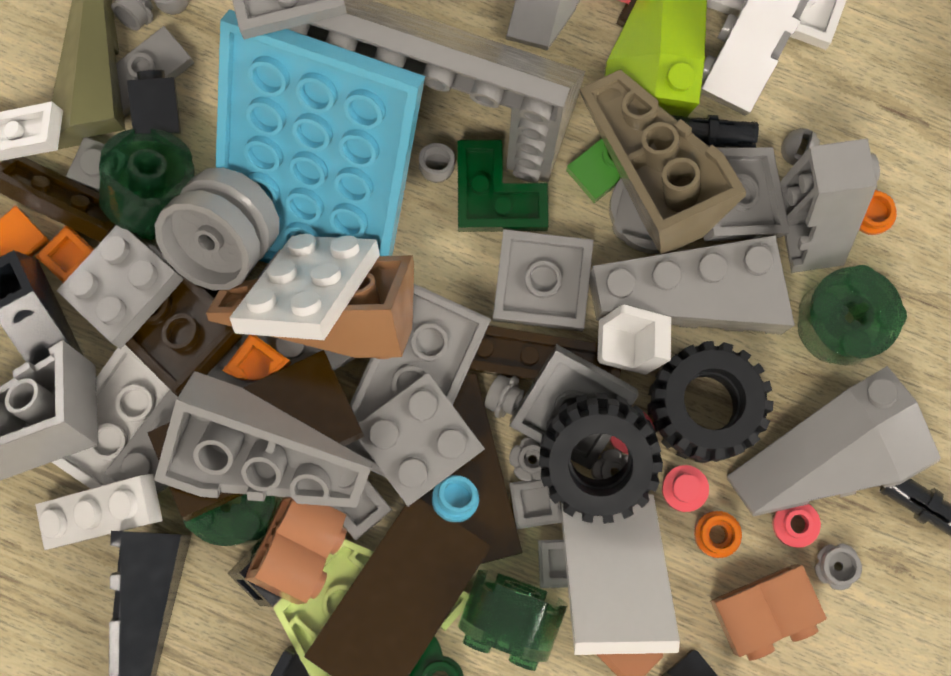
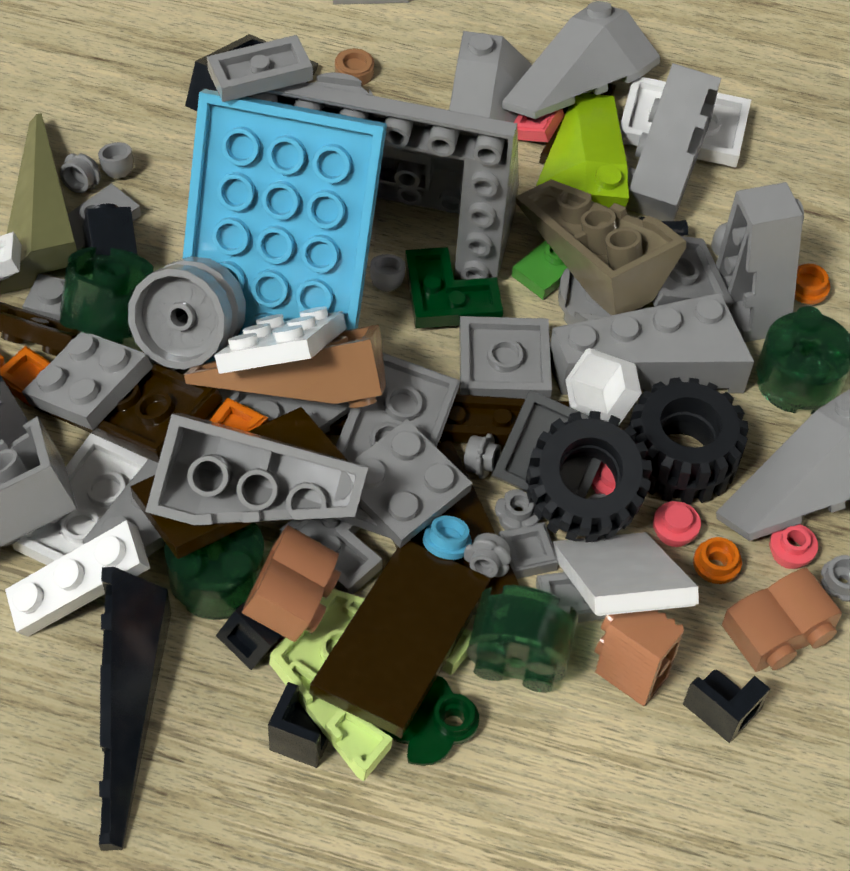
camera: 10 degrees left, 25 degrees down
(492, 523) = (488, 555): none -> light grey plate

